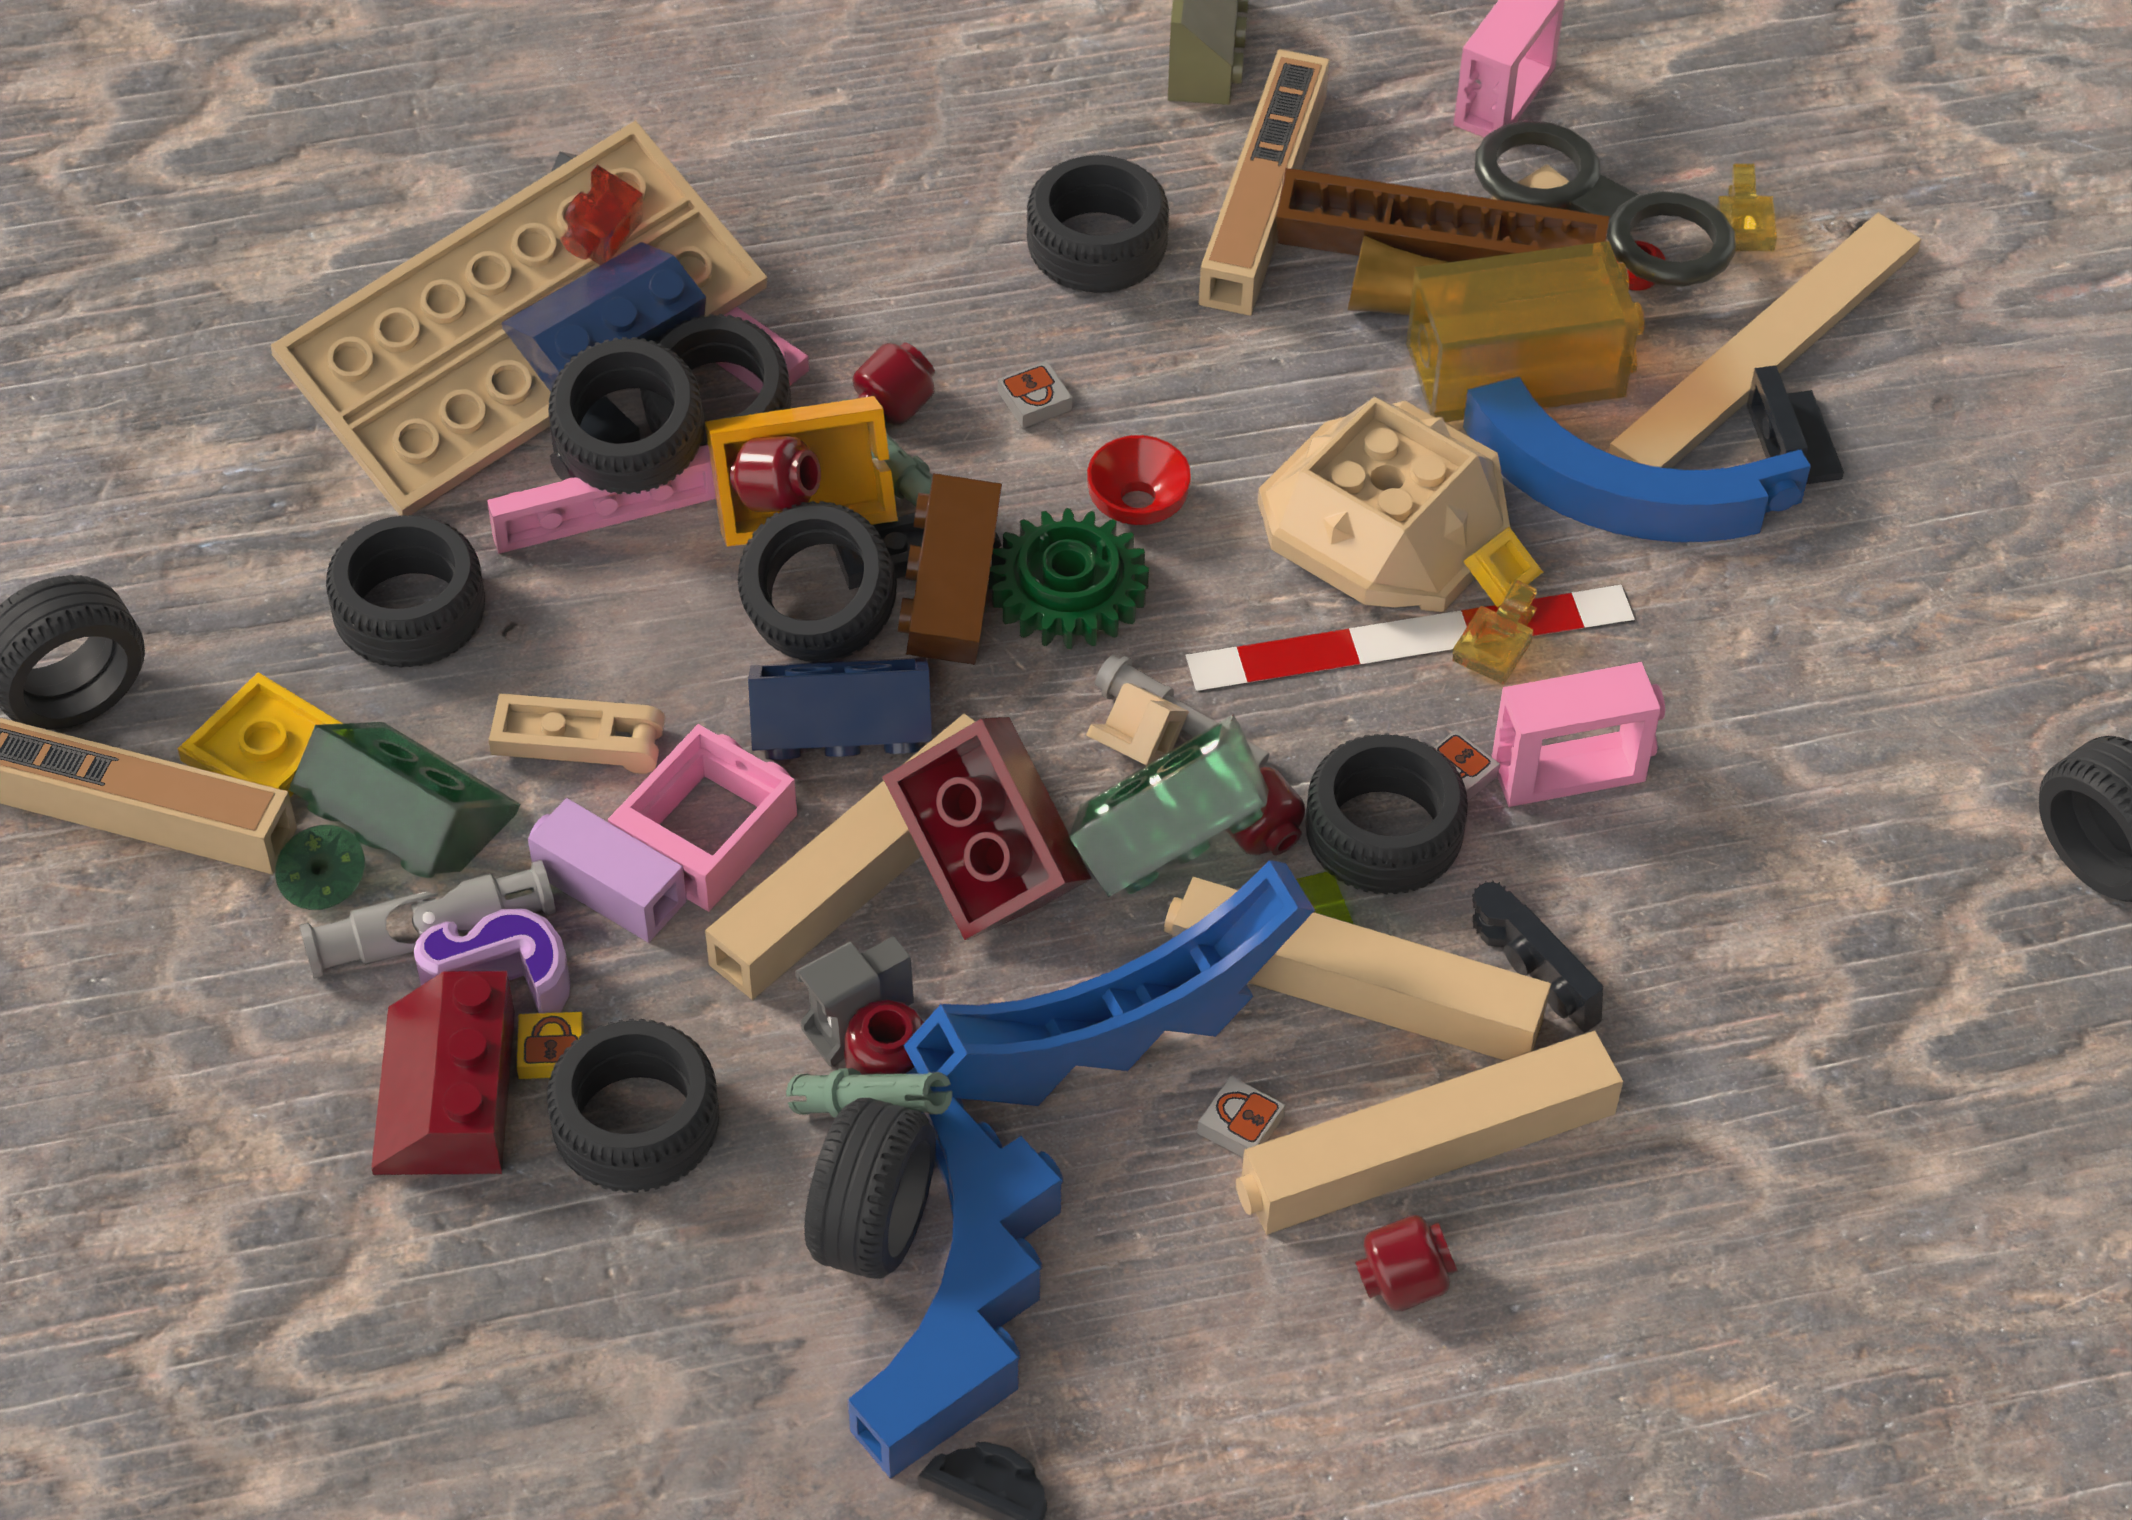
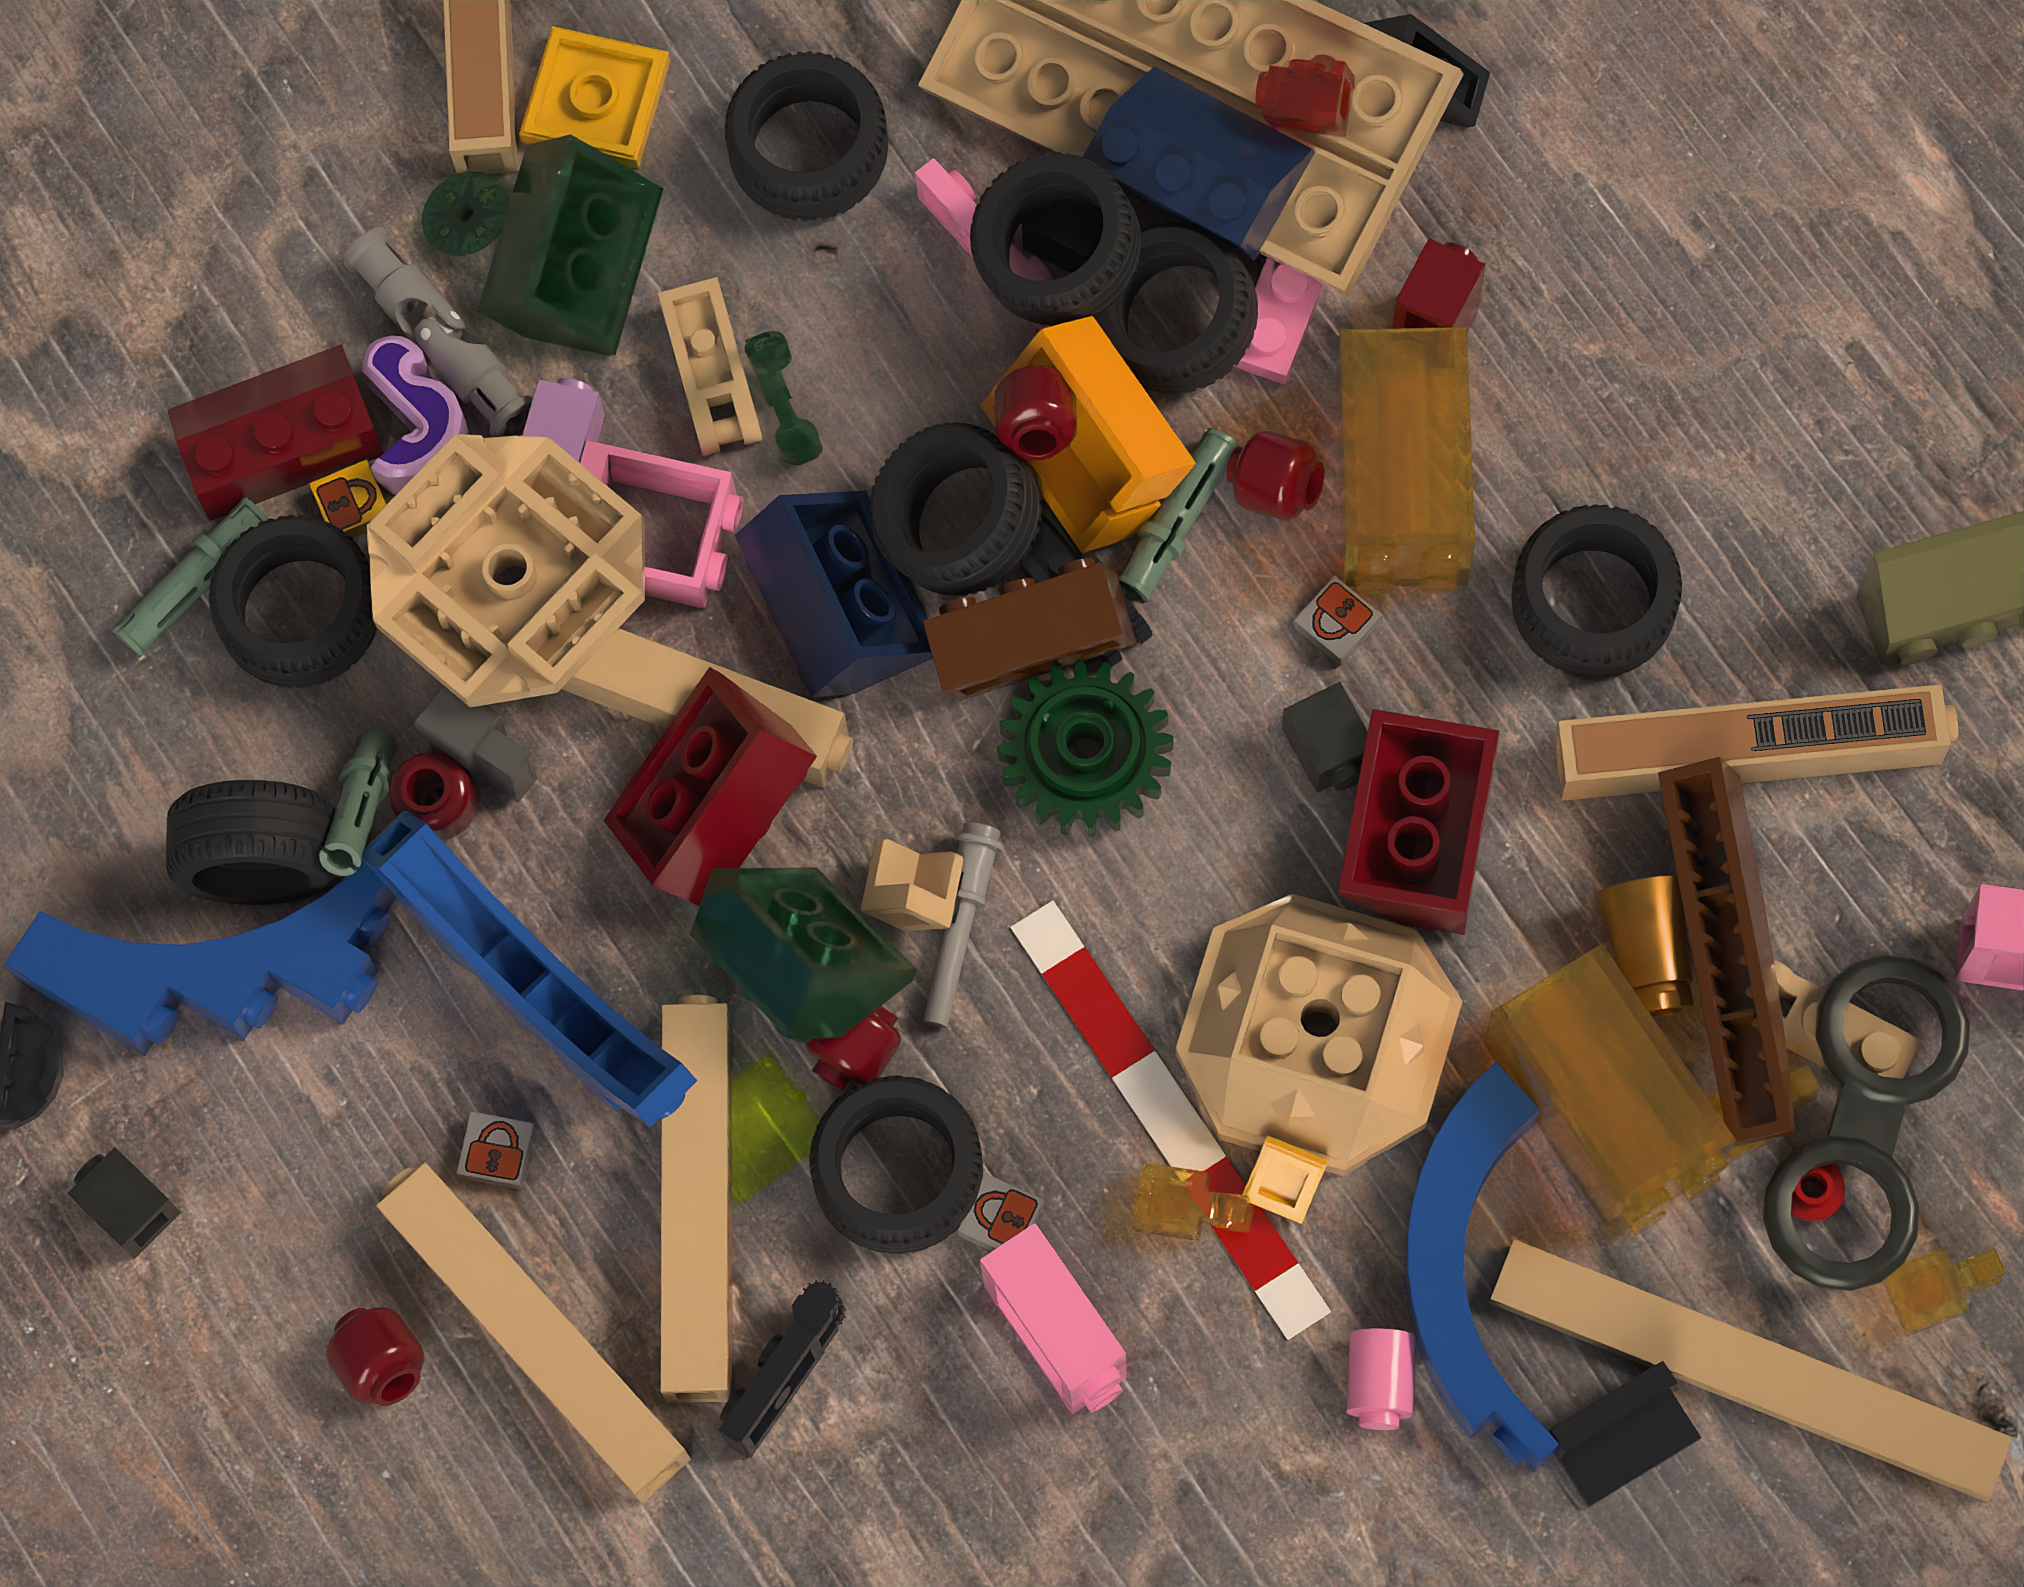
camera: 75 degrees right, 20 degrees up
(548, 1170) = (185, 582): none -> sand green pin
(614, 639) = (796, 437): none -> clear green piece
(734, 825) = (494, 509): none -> tan piece
(811, 228) = (1441, 288): none -> dark red brick
(931, 280) = (1404, 459): none -> clear yellow brick
(1138, 465) = (1240, 738): red piece -> none
(1140, 410) = (1327, 738): none -> pearl dark grey brick
(1168, 1432) = (122, 1201): none -> pearl dark grey brick
(1248, 366) = (1419, 820): none -> dark red slope
(1696, 556) = (1381, 1377): none -> bright pink brick

